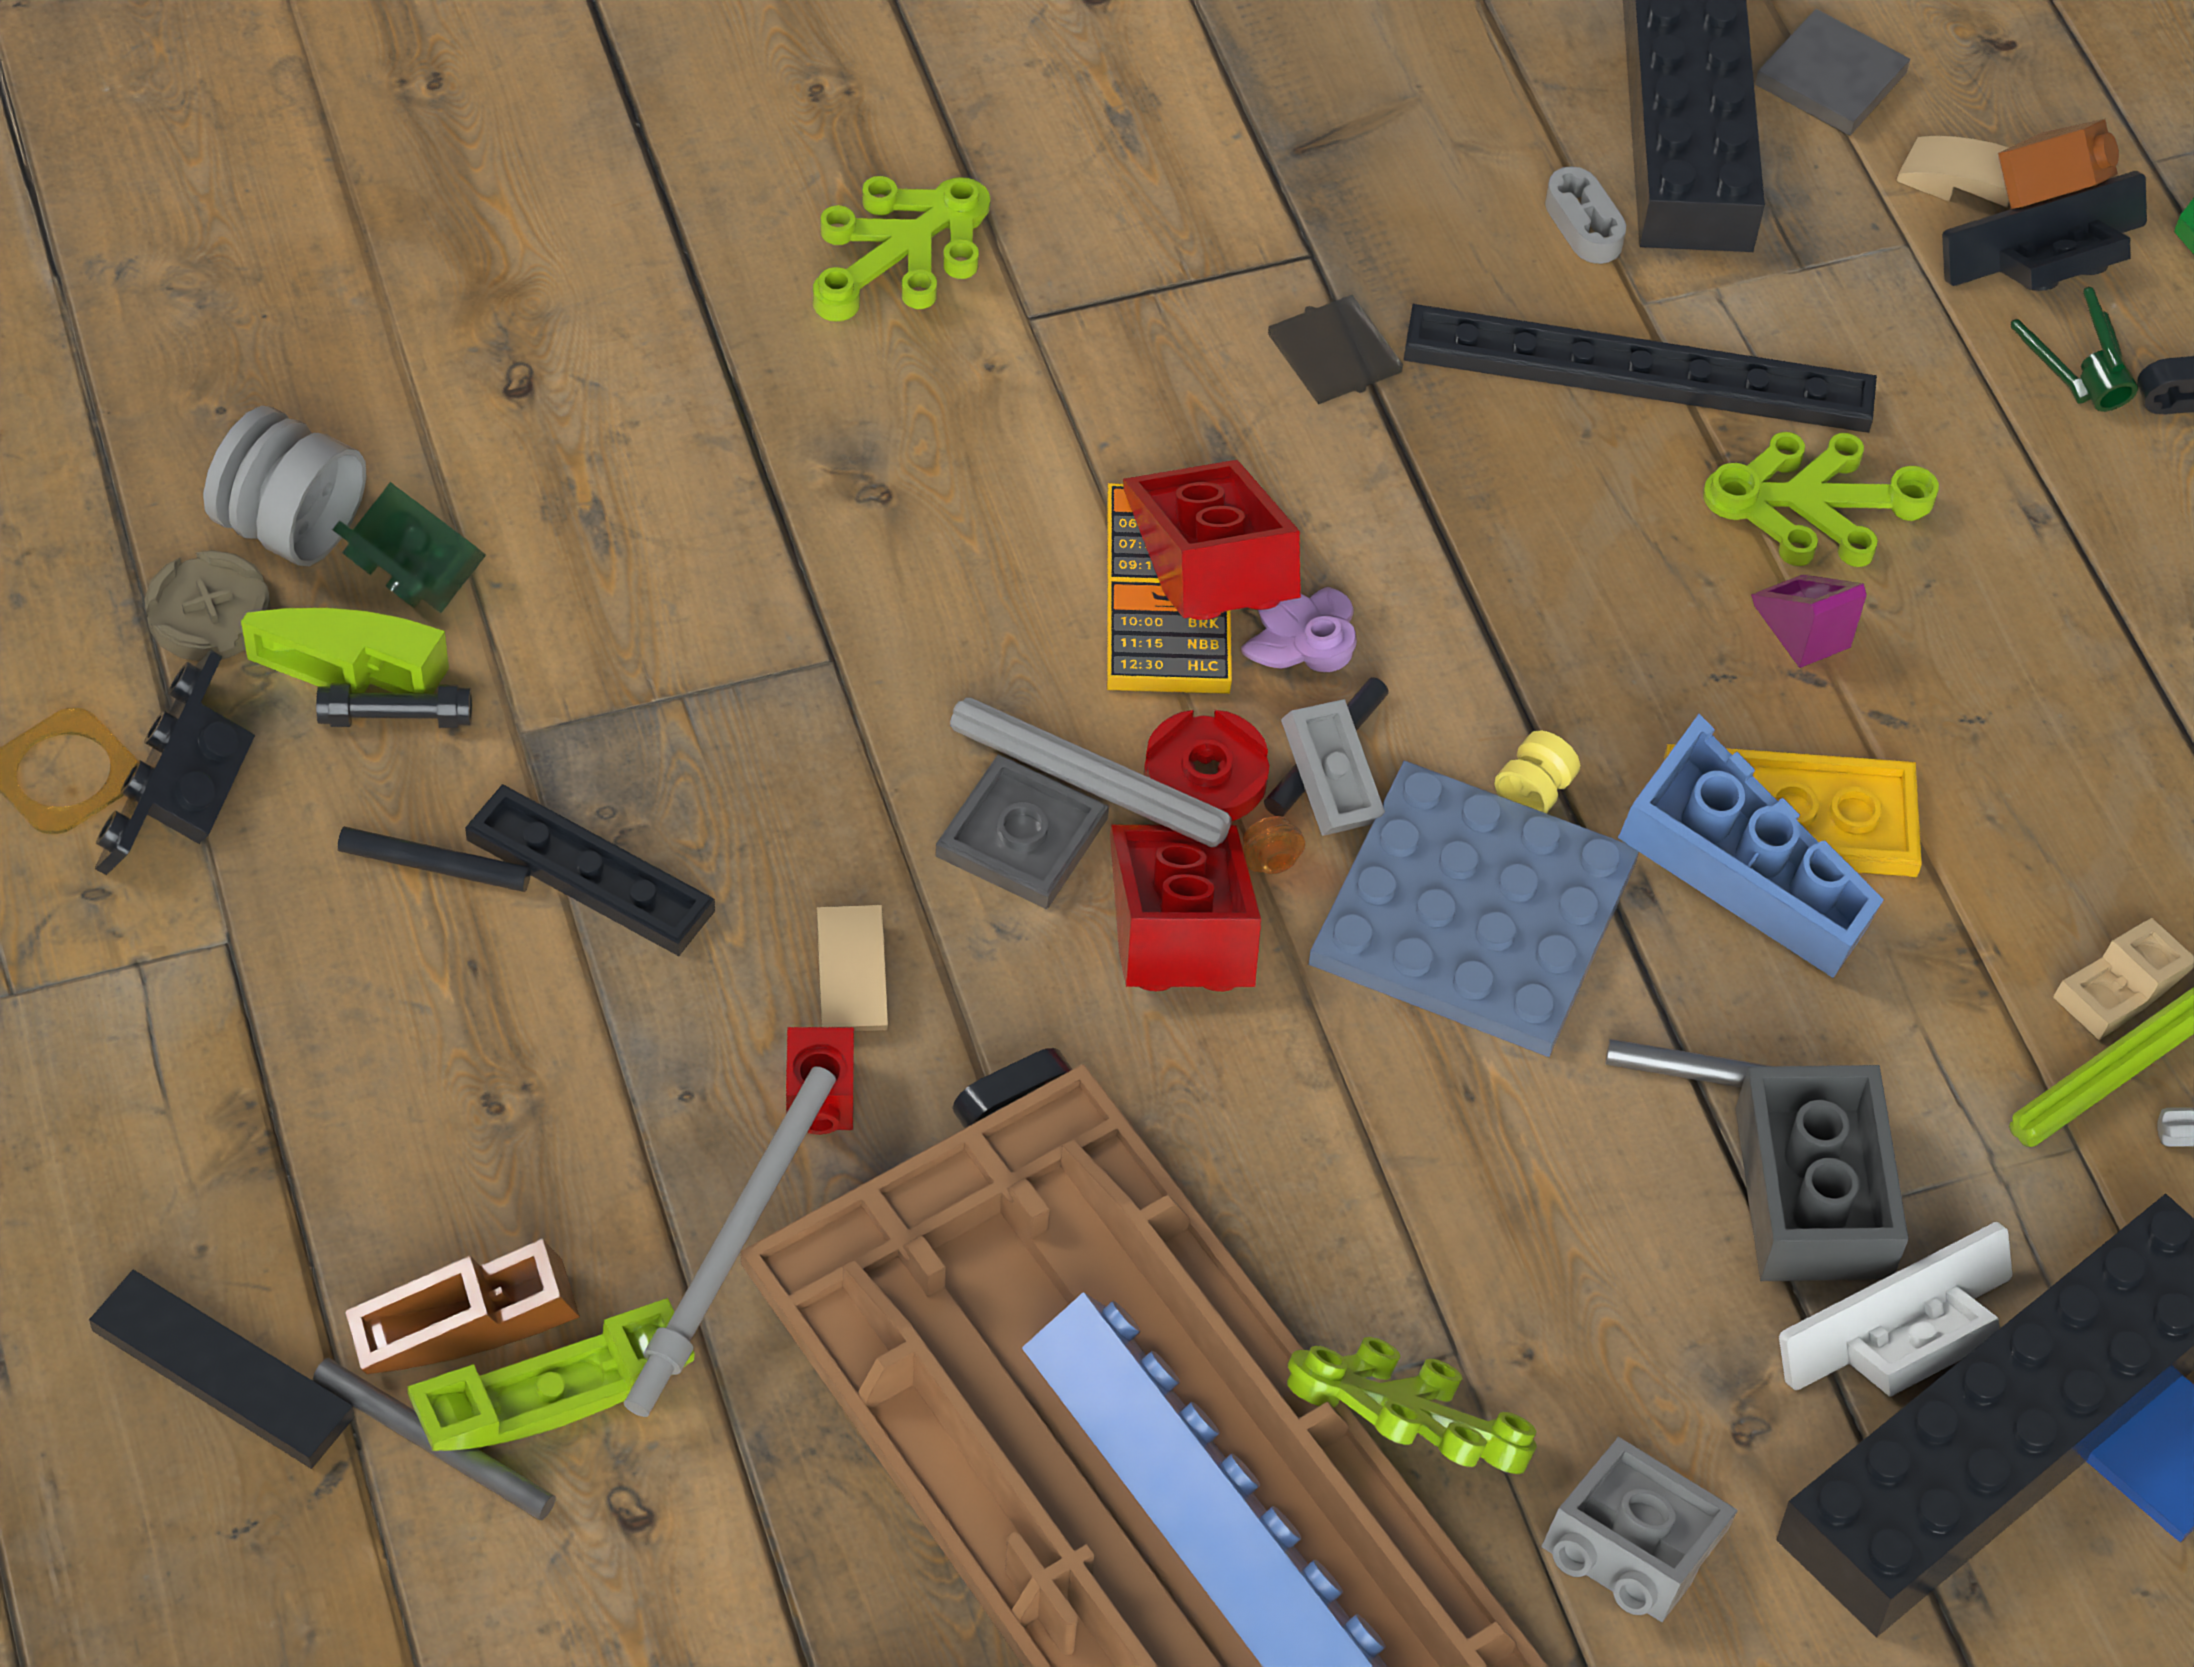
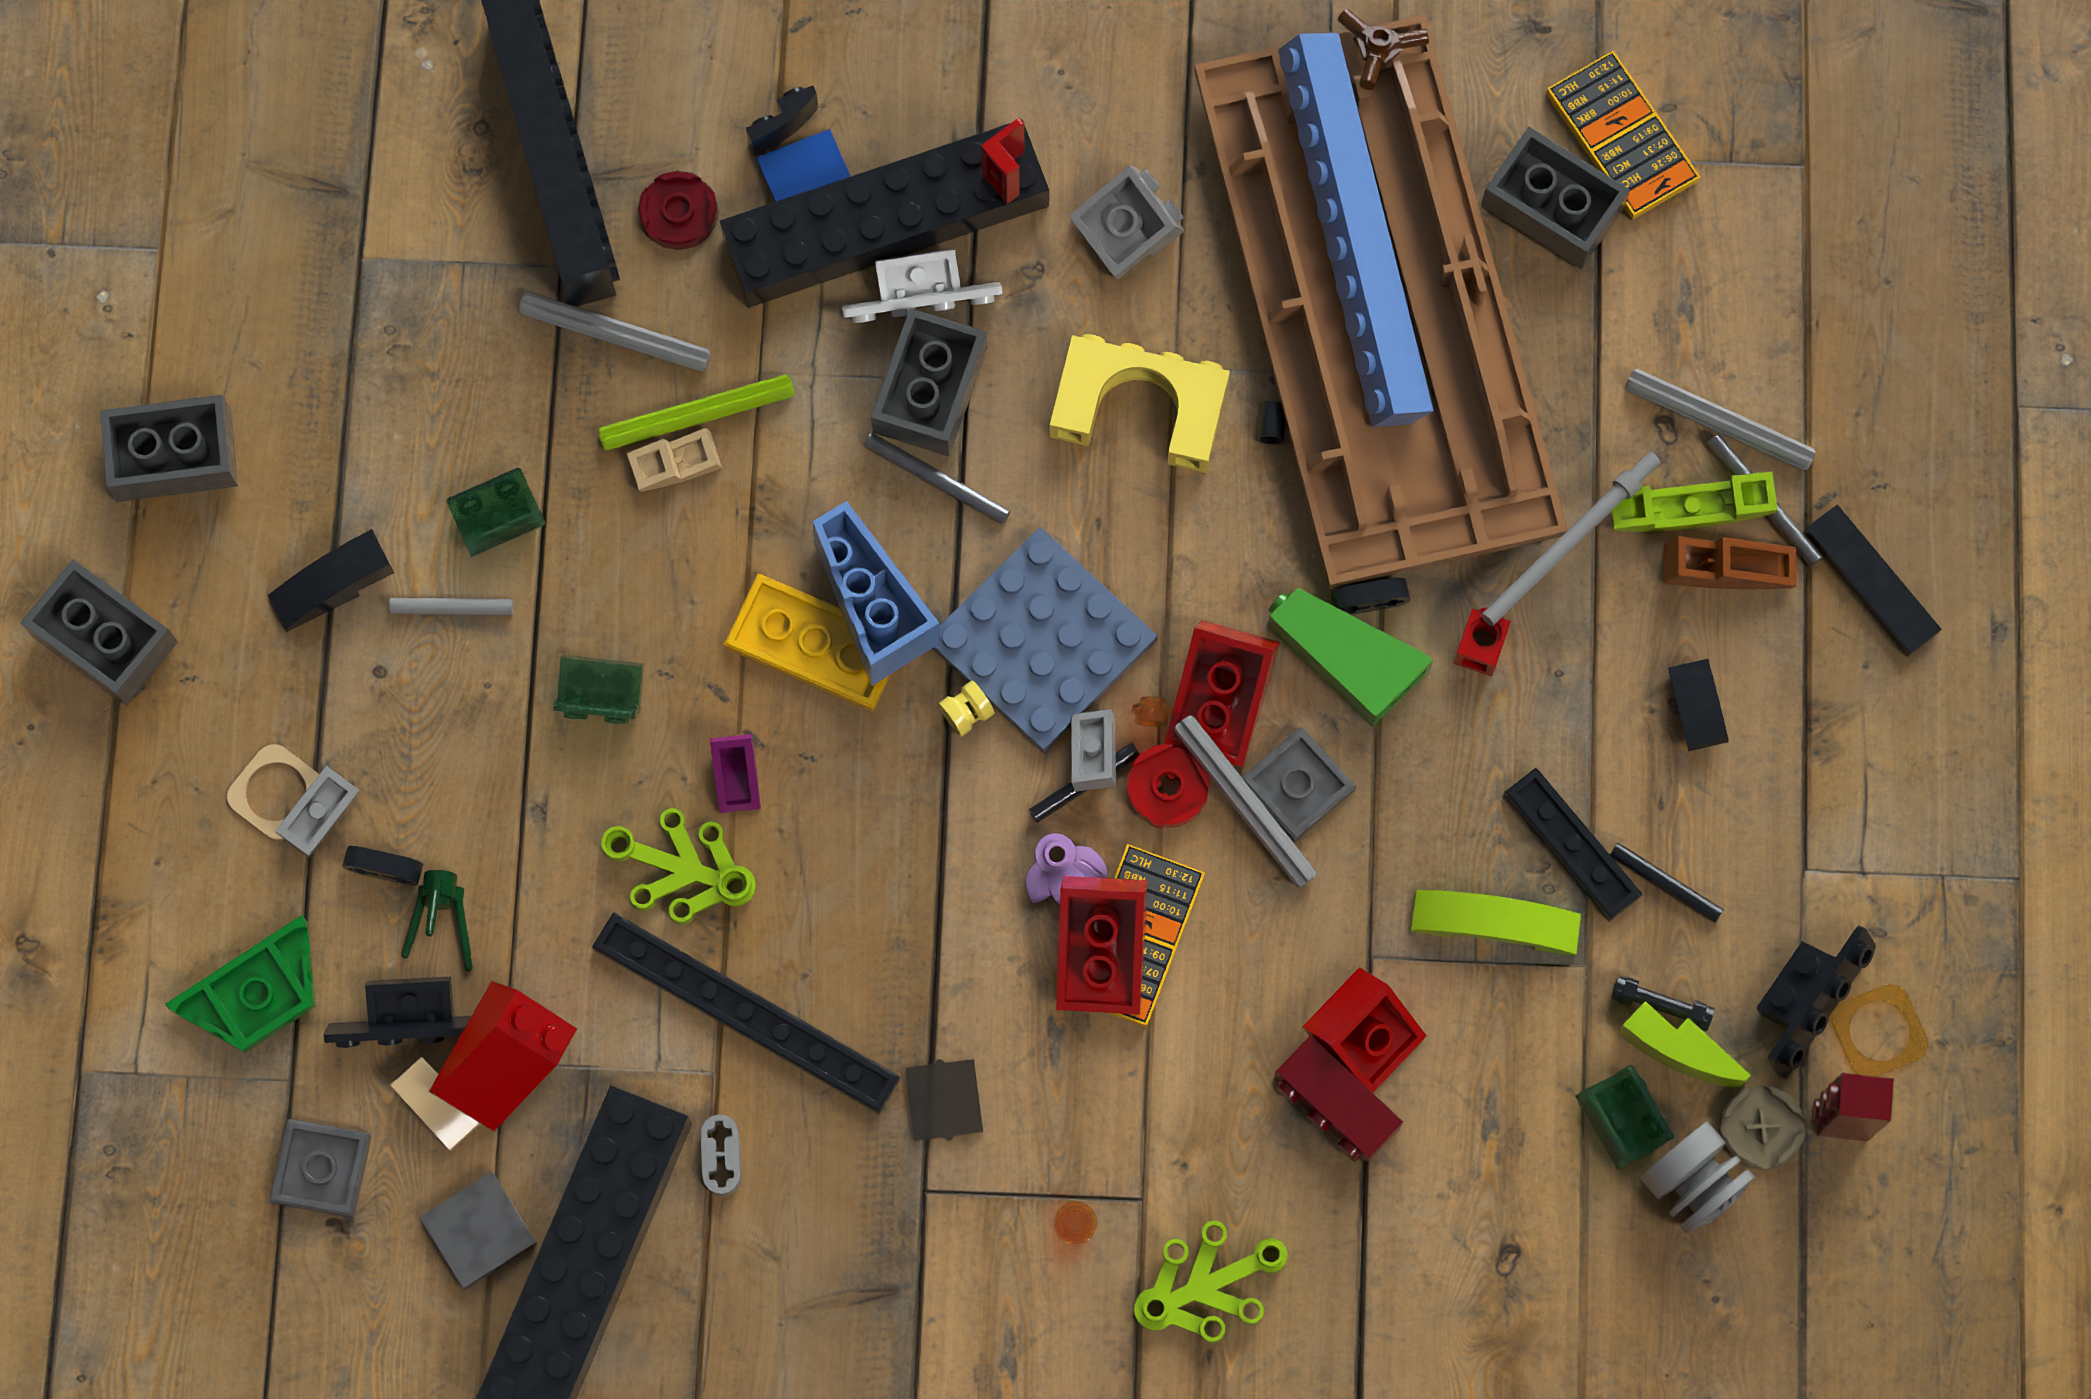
camera: 155 degrees left, 20 degrees up
(82, 596) = (1854, 1107): none -> dark red brick
(457, 1091) = (1698, 705): none -> black slope
(543, 1538) = (1720, 419): none -> light grey axle
(667, 729) = (1496, 919): none -> lime slope
(811, 551) = (1366, 1028): none -> red slope
(813, 466) = (1336, 1101): none -> dark red brick
(852, 967) = (1437, 716): tan slope -> none
(1006, 999) = (1348, 654): none -> bright green slope
(1103, 261) = (1075, 1236): none -> clear orange plate
(1276, 1289) = (1270, 423): none -> black hinge
(1403, 1405) = (1232, 315): lime plant -> none
(1421, 1307) = (1097, 367): none -> light yellow arch
(1881, 1445) = (999, 161): none -> red panel
(1916, 219) = (501, 1055): none -> red slope
(2047, 648) = (599, 688): none -> clear green bracket
(2057, 82) = (320, 1168): none -> flat silver tile
(2059, 162) = (380, 1061): dark orange slope -> none

